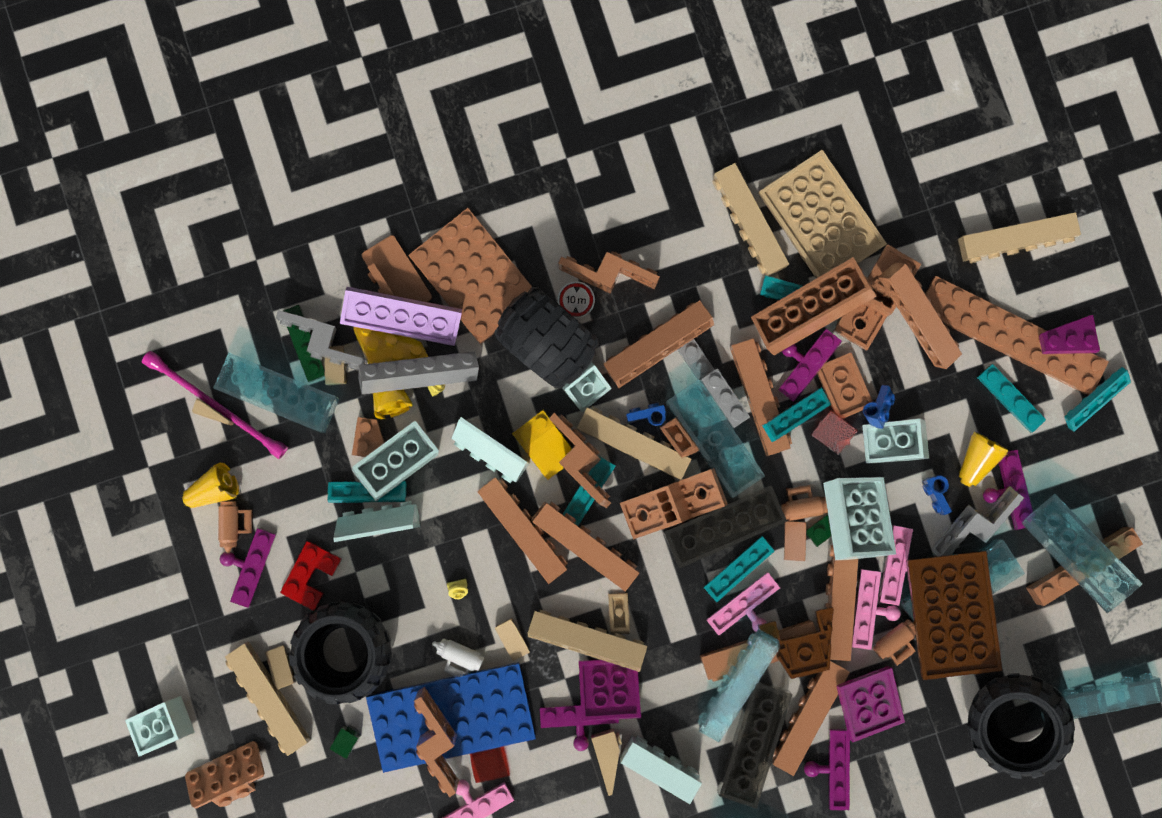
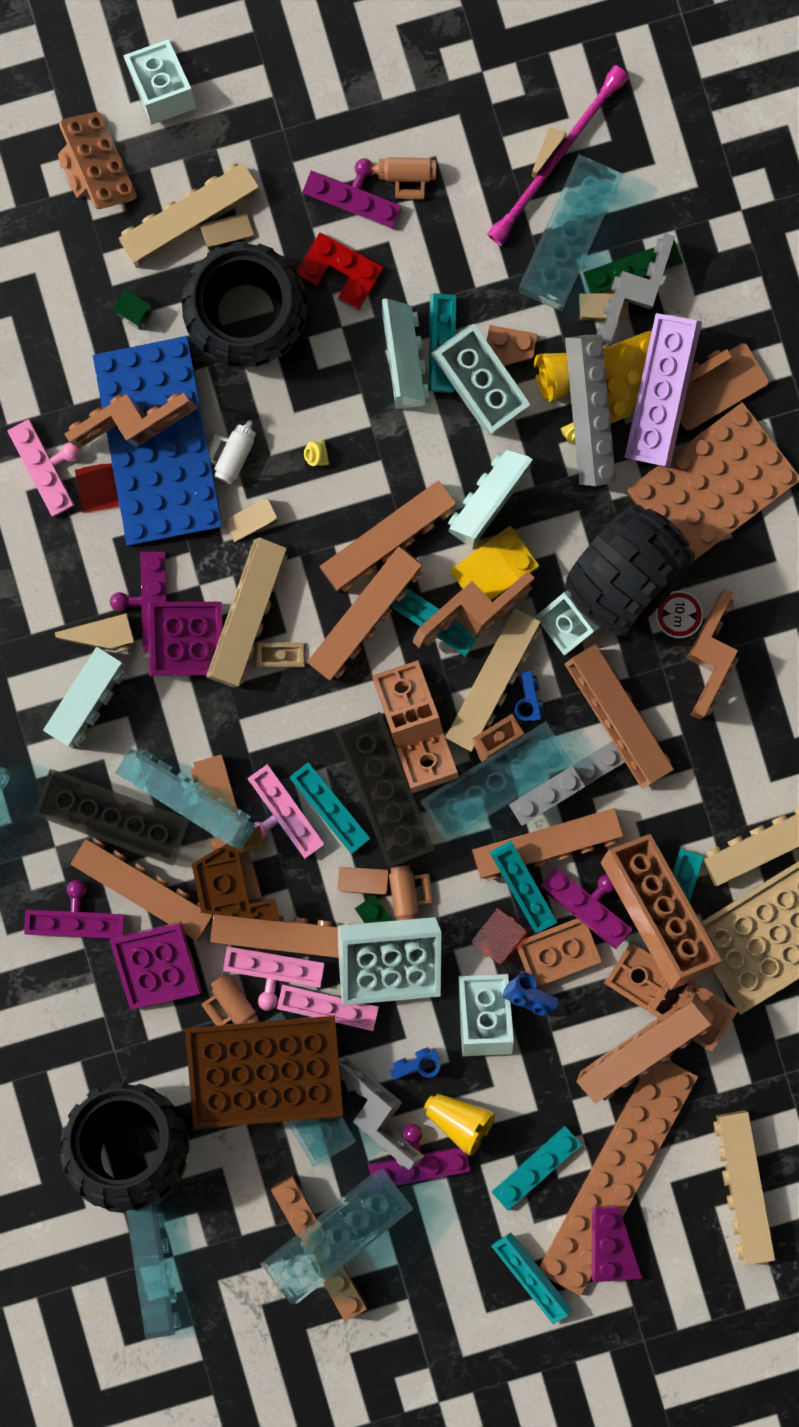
camera: 85 degrees right, 0 degrees up
(212, 487) = (453, 150): yellow cone -> none

